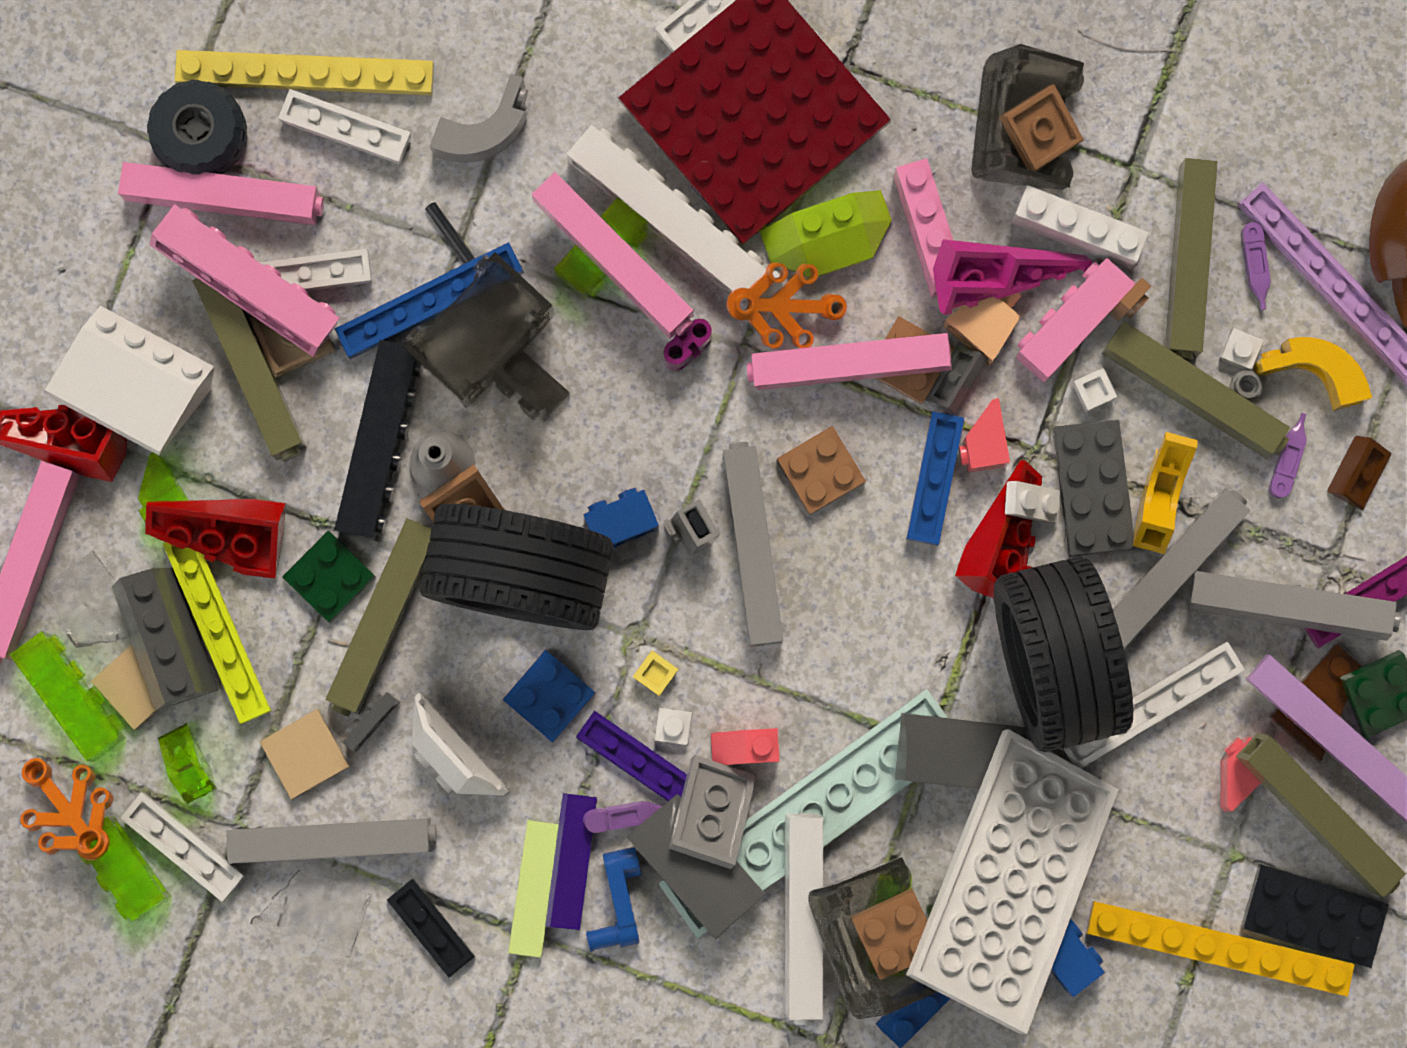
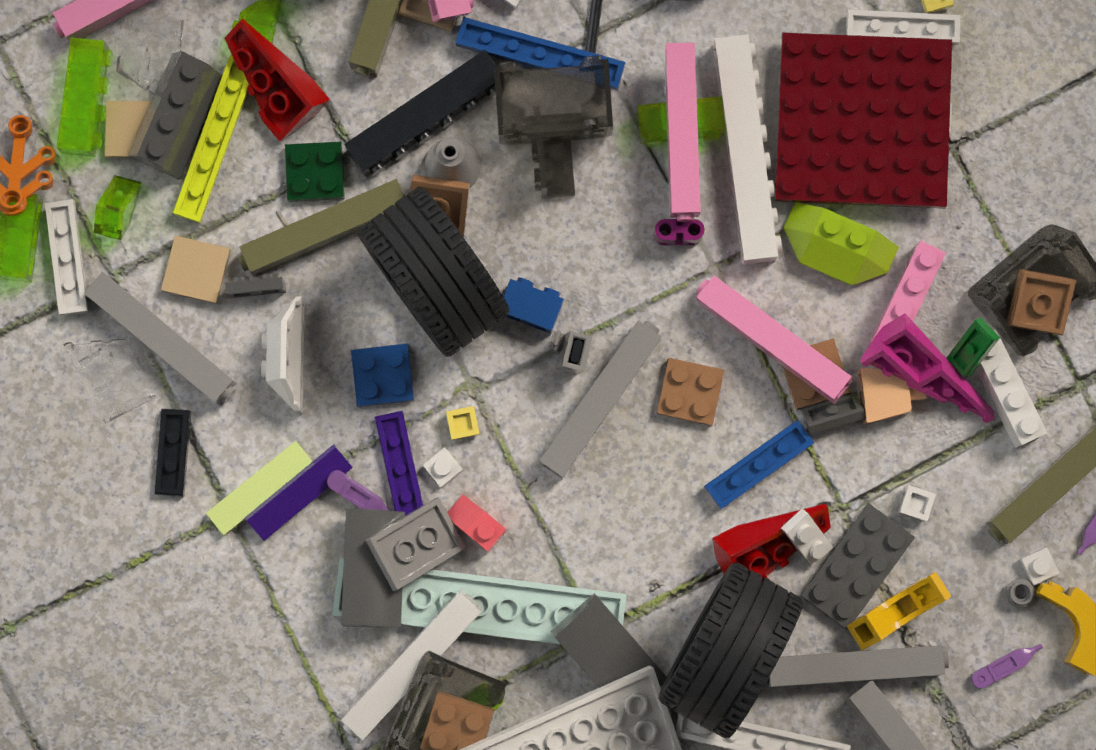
camera: 45 degrees right, 0 degrees up
(619, 867) = (325, 524): blue beam -> none
(781, 305) = (762, 261): orange plant -> none
(986, 442) = (813, 471): coral slope -> none
(1023, 217) = (973, 347): none -> green plate
(1075, 319) = (946, 446): bright pink brick -> none
(1131, 301) = (994, 467): medium nougat plate -> none
(1197, 391) = (983, 565): olive brick -> none
(1359, 471) = (1043, 717): reddish brown slope -> none

